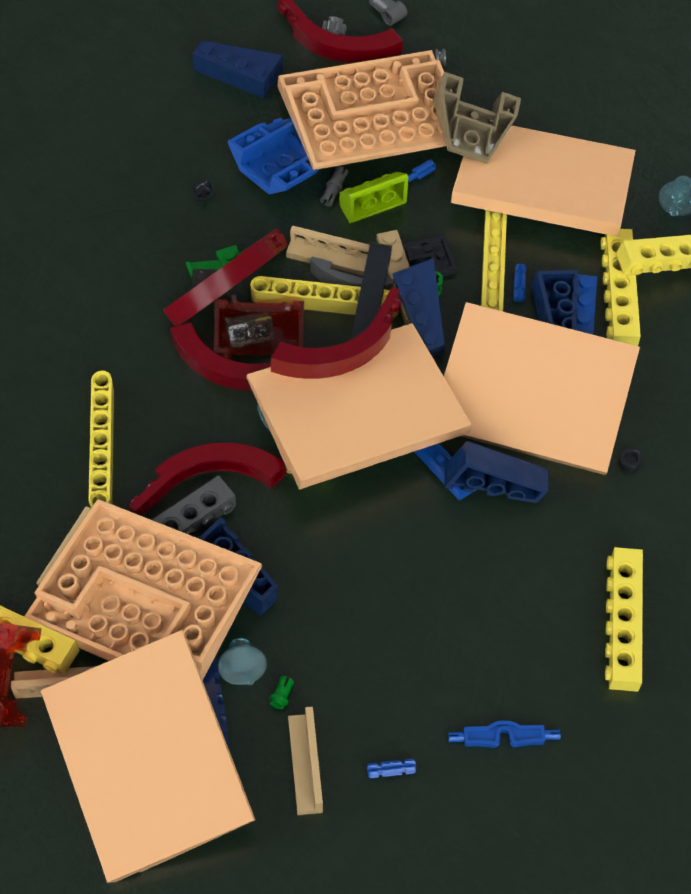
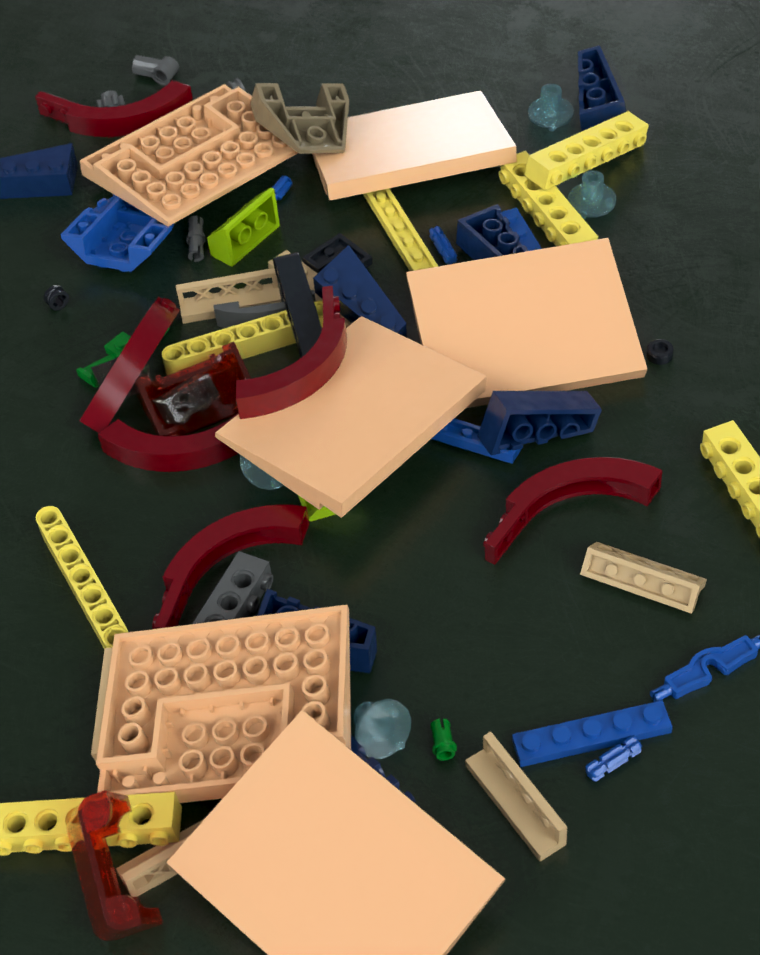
camera: 20 degrees left, 10 degrees down
(388, 741) = (591, 733): none -> blue plate
(489, 535) = (567, 480): none -> dark red arch
(498, 640) = (642, 576): none -> tan fence
(661, 296) = (592, 196): none -> clear light blue piece

